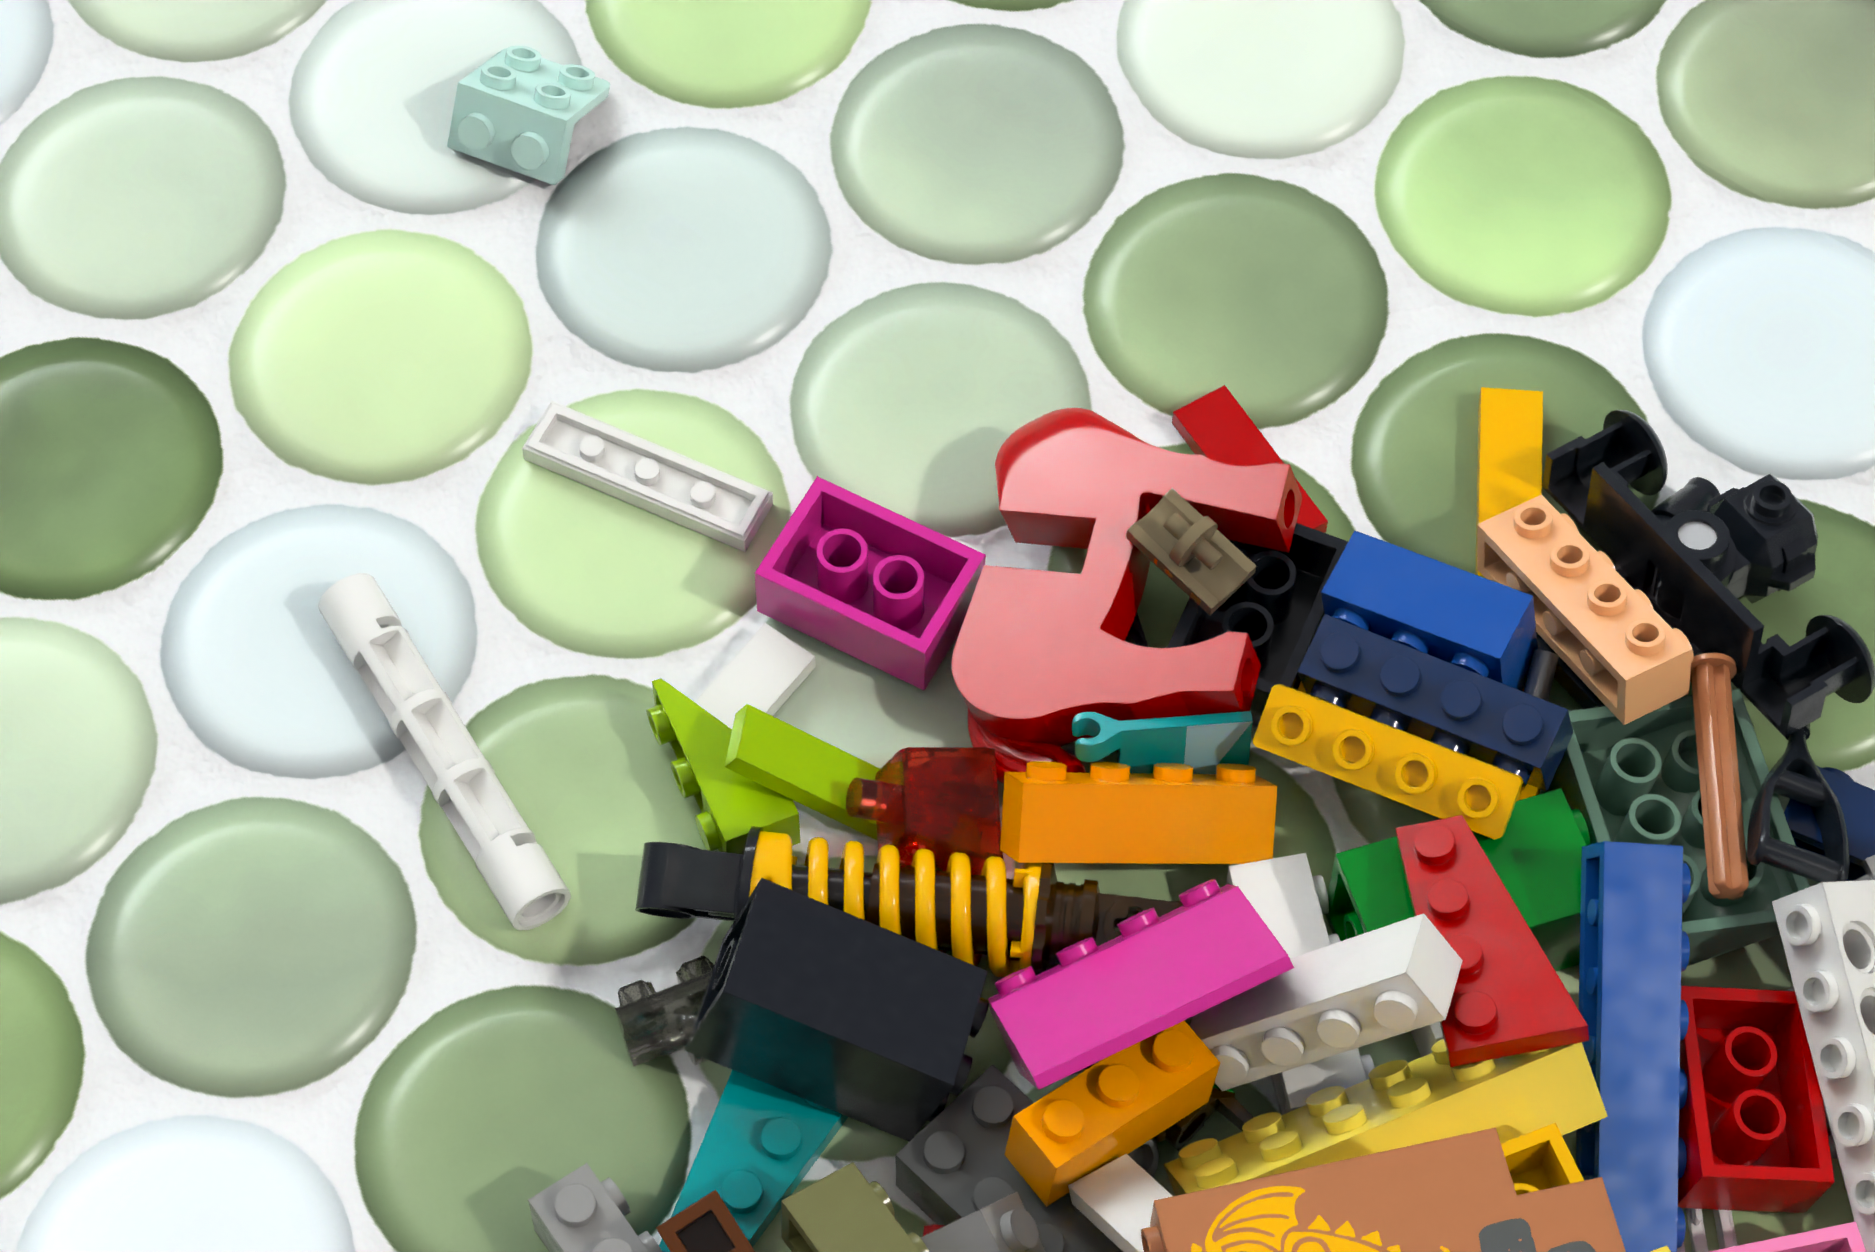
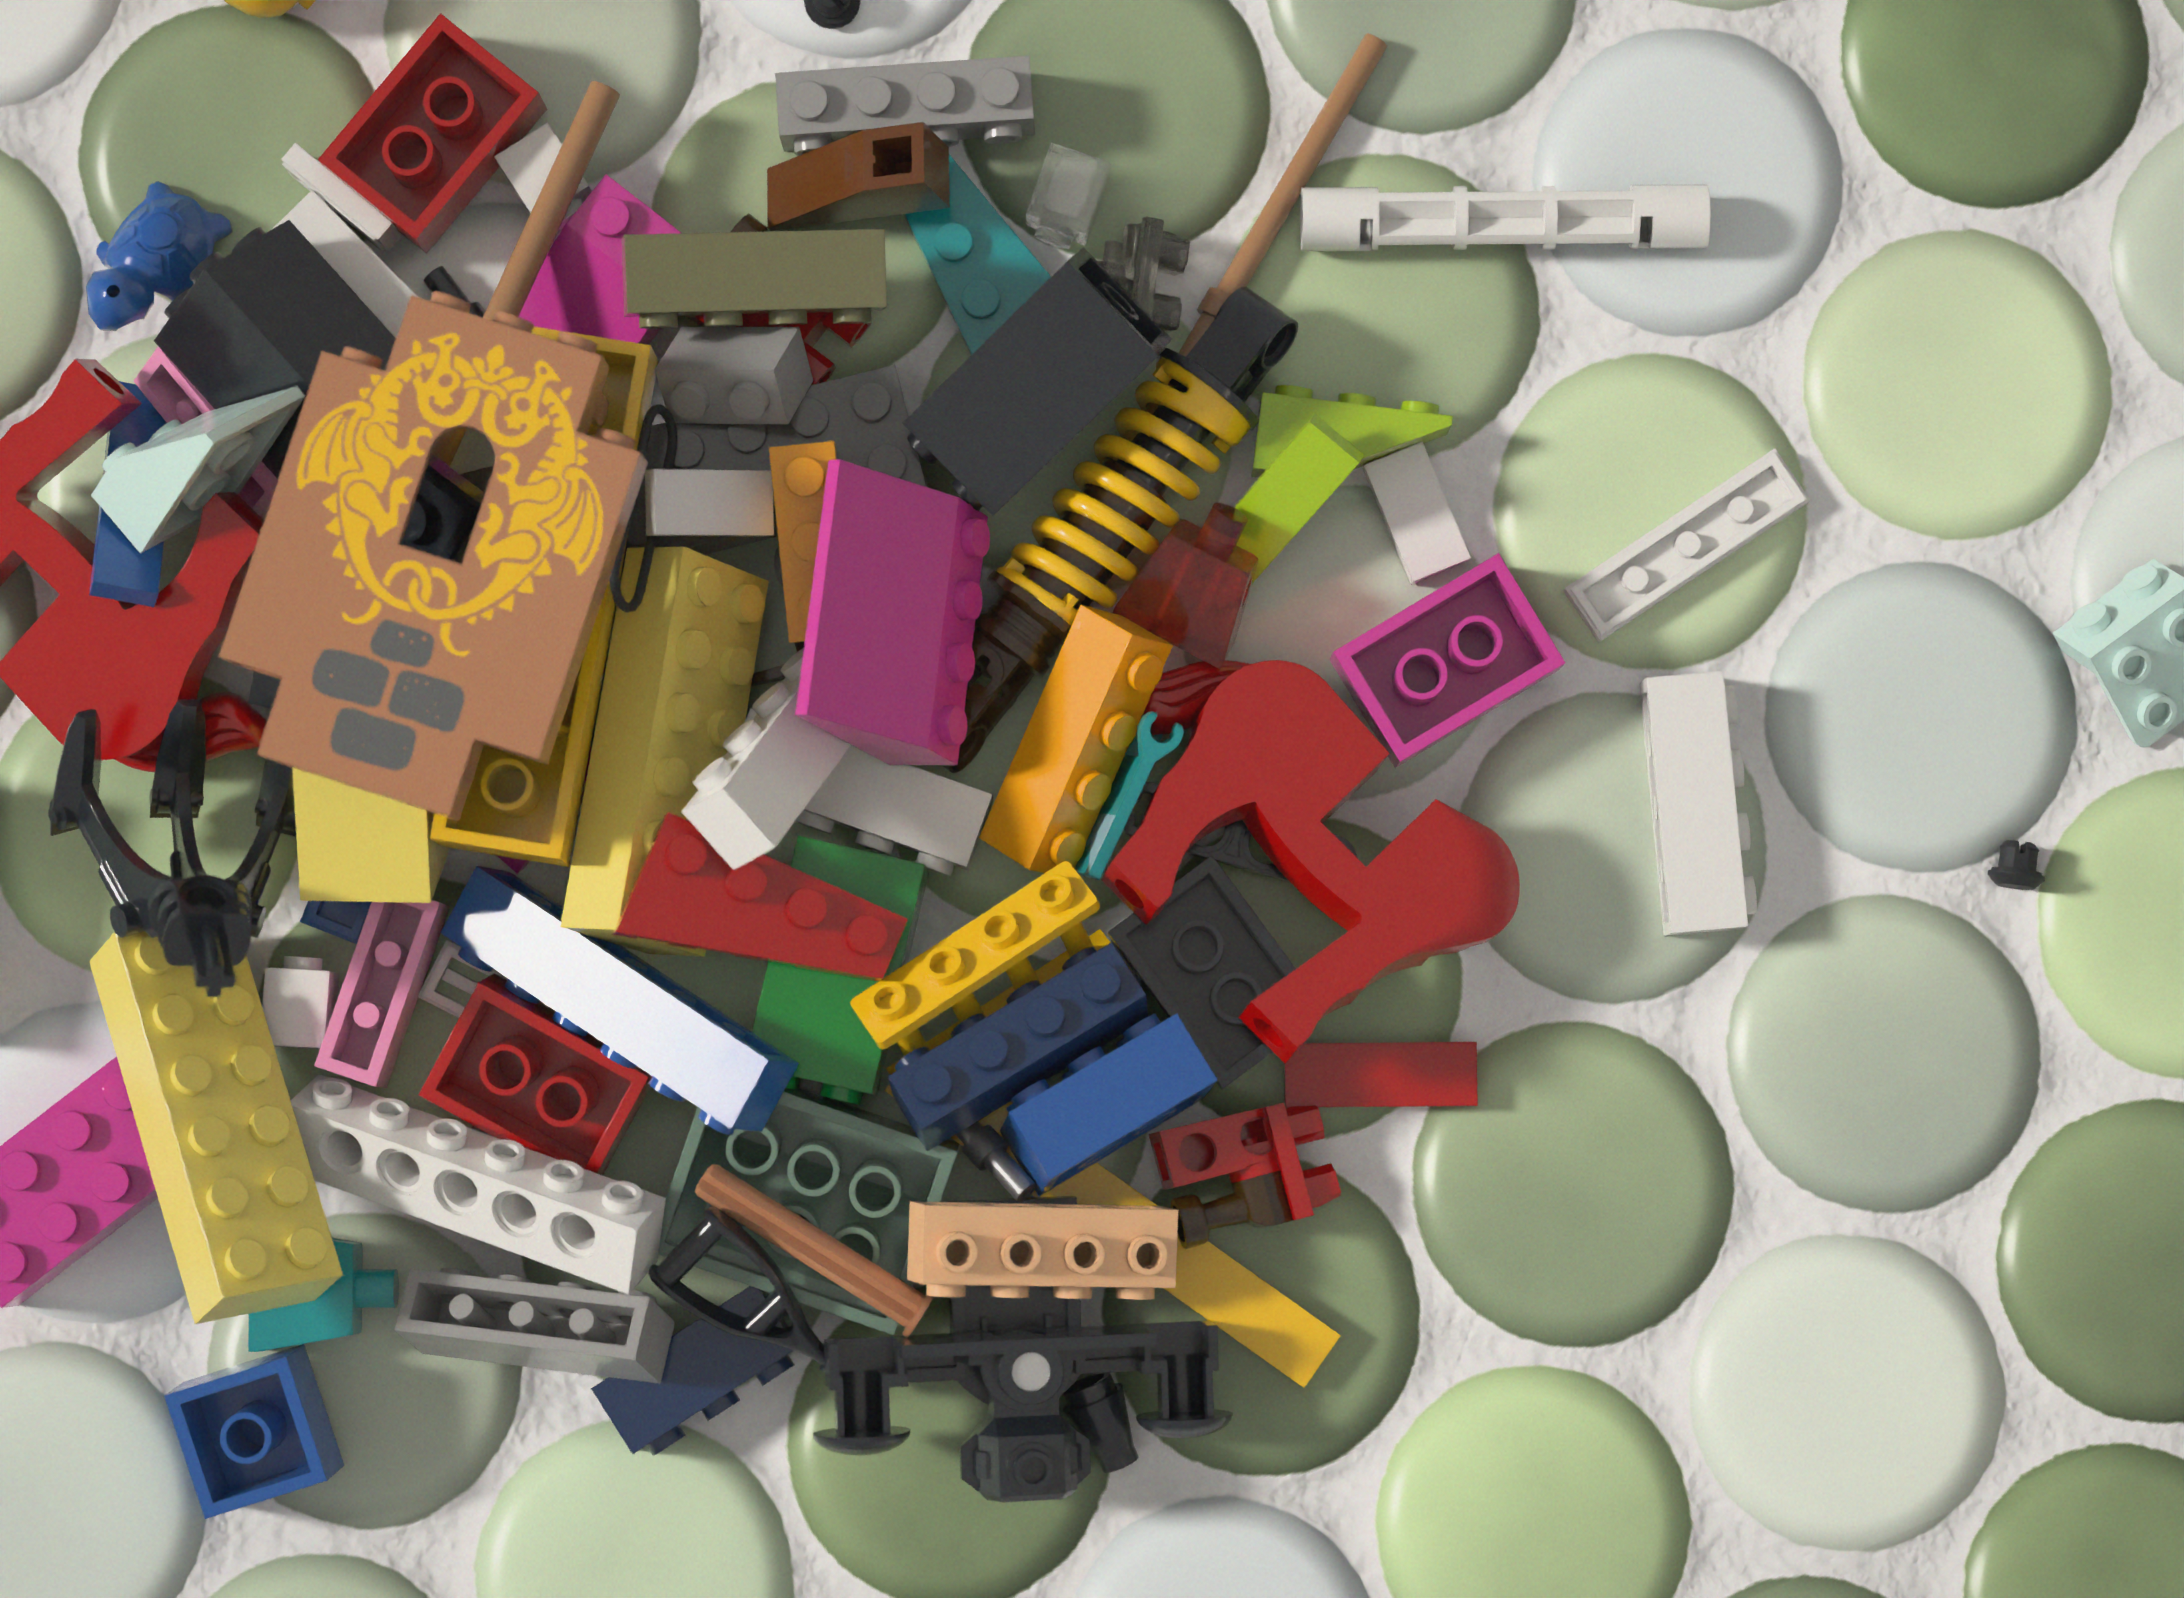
camera: 120 degrees right, 25 degrees up
(639, 1115) = (1067, 196): none -> clear brick
(662, 940) = (1290, 184): none -> medium nougat bar
(765, 116) = (2017, 868): none -> black piece
(866, 353) = (1695, 803): none -> white brick
(1191, 551) = (1276, 919): dark tan hips -> none
(1396, 499) = (1261, 1163): none -> red hips

